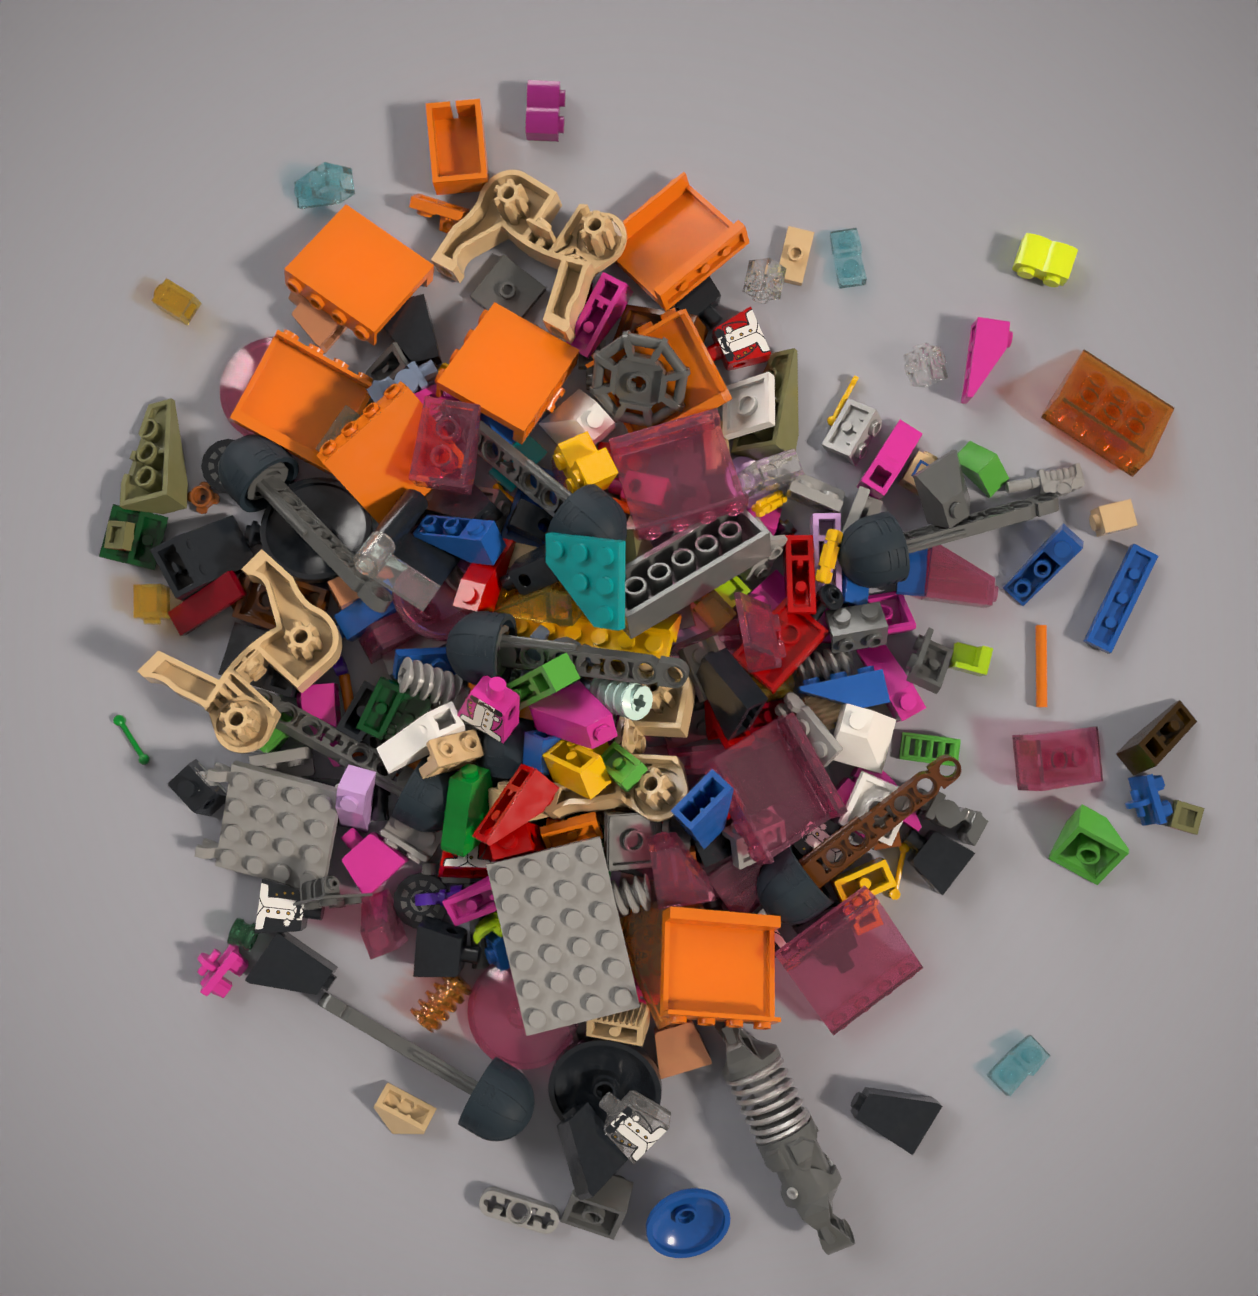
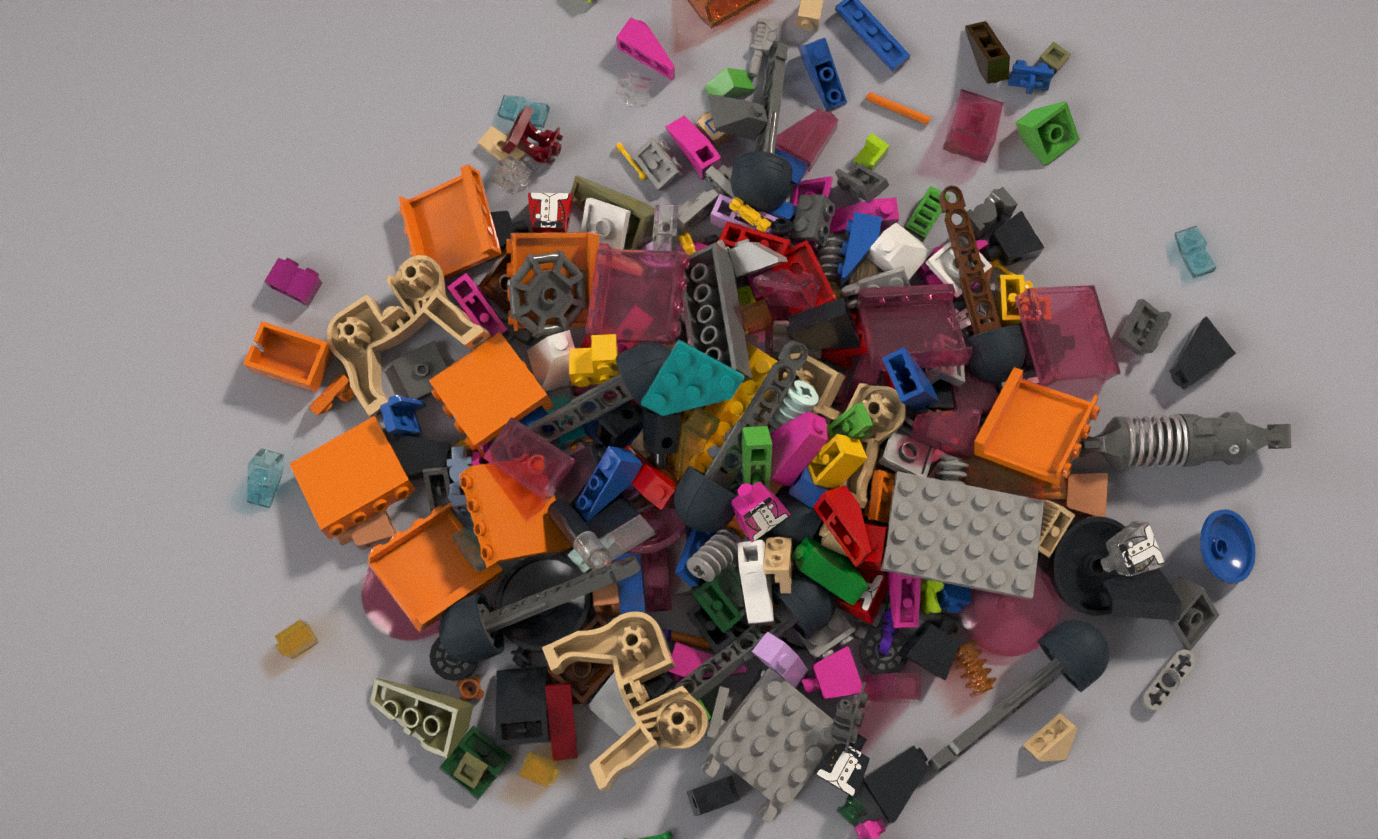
camera: 60 degrees left, 10 degrees down
(444, 293) = (401, 415): none -> blue bracket
(777, 581) = (753, 258): none -> light grey slope
(816, 265) = (522, 129): none -> dark red tile
(900, 1041) = (1144, 327): none -> dark grey bracket

